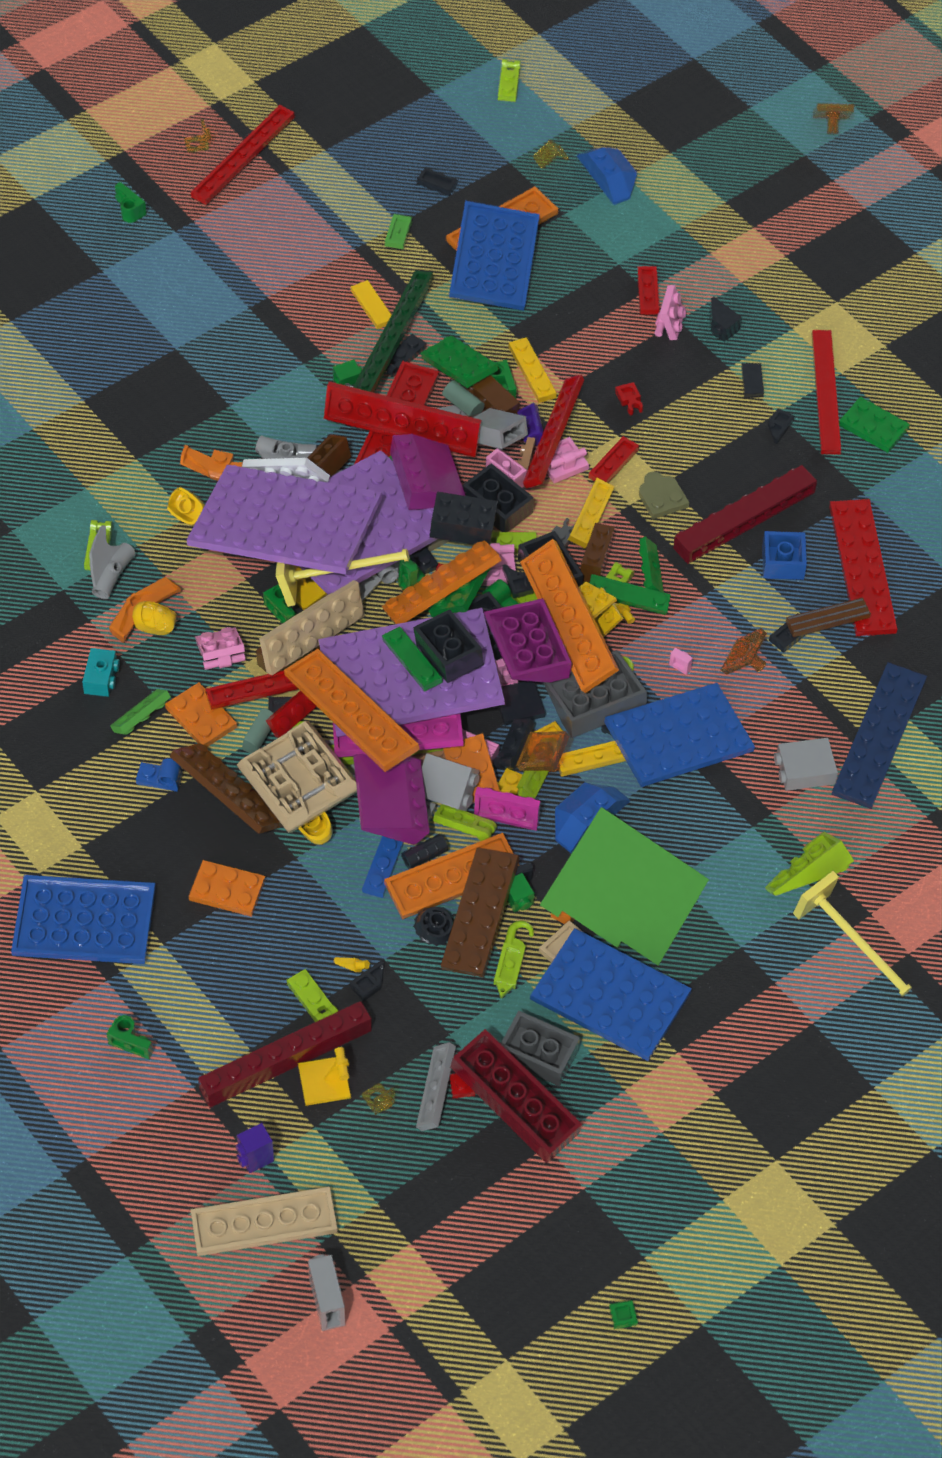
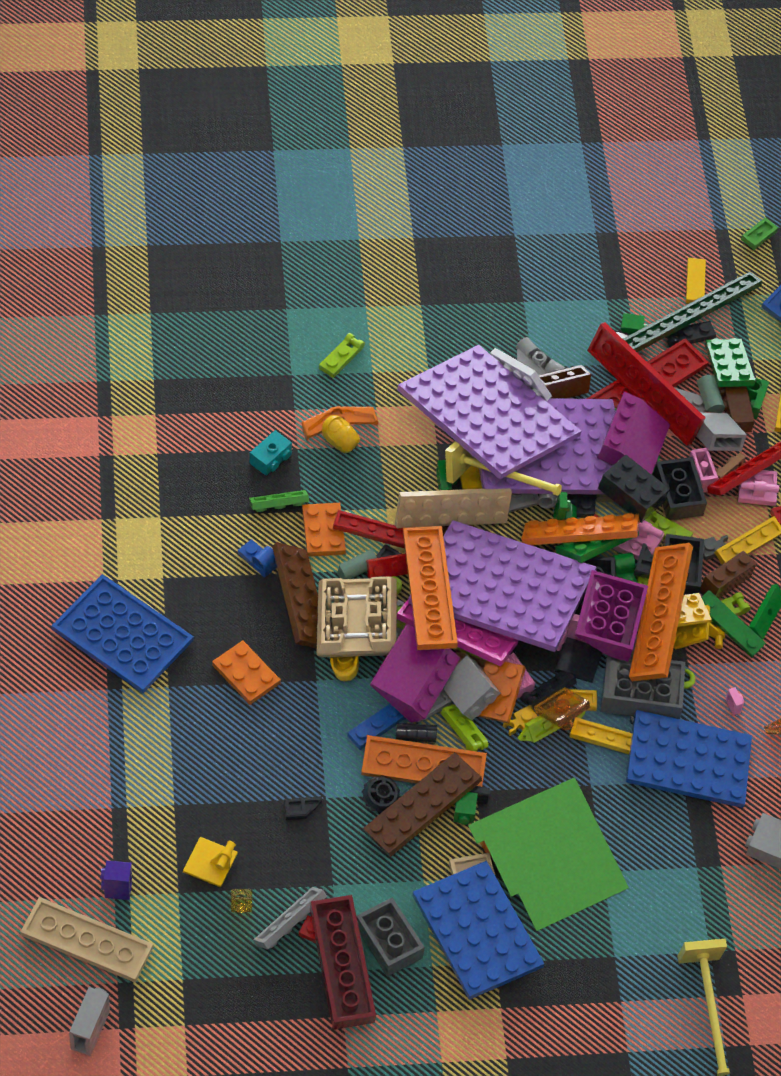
camera: 30 degrees right, 0 degrees up
(107, 563) = (335, 372): light grey pin -> none
(128, 1040) = (87, 742): green plate -> none
(131, 205) = (559, 103): green plate -> none
(185, 506) = (427, 357): yellow piece -> none
(203, 139) = (656, 79): clear yellow bracket -> none
(208, 466) = (470, 337): orange plate -> none
(220, 646) = (375, 484): bright pink plate -> none
(242, 155) = (678, 108): red plate -> none
(284, 1054) = (194, 823): dark red brick -> none
(310, 995) = (248, 793): lime plate -> none
(352, 963) = (297, 786): yellow bar -> none
(412, 658) = (508, 575): green plate -> none
(448, 646) = (540, 580): black brick -> none
(507, 808) = (503, 736): dark pink plate -> none
(511, 959) = (421, 855): lime plate -> none
(533, 420) = (754, 442): dark purple brick -> none
(580, 808) = (558, 769): blue wedge -> none
(819, 859) = (734, 925): lime wedge -> none

